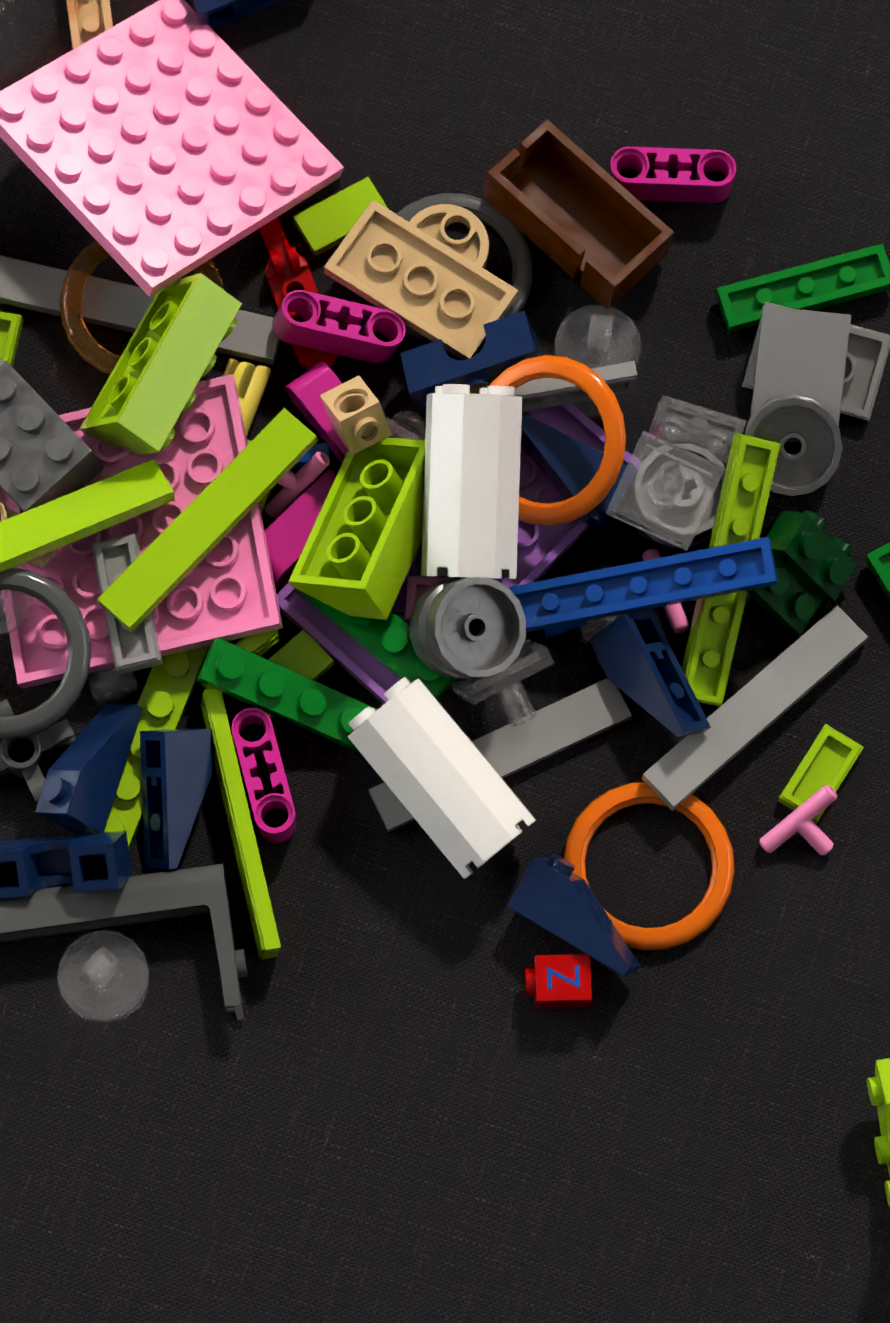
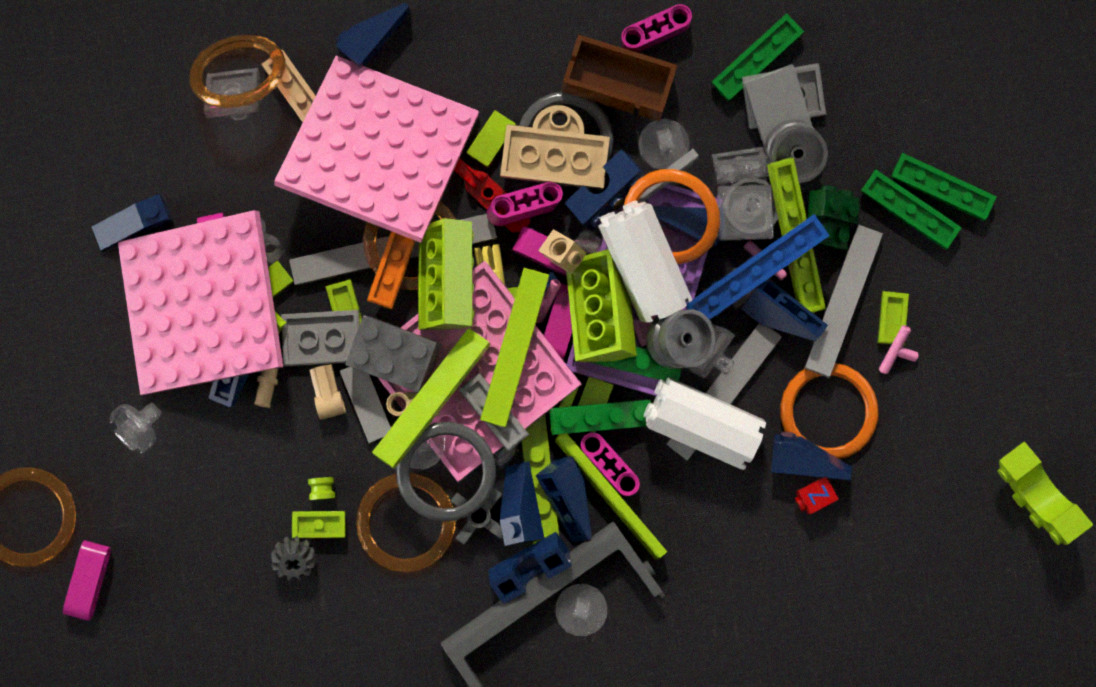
camera: 25 degrees left, 10 degrees up
(88, 324) = (391, 270): none -> orange tile

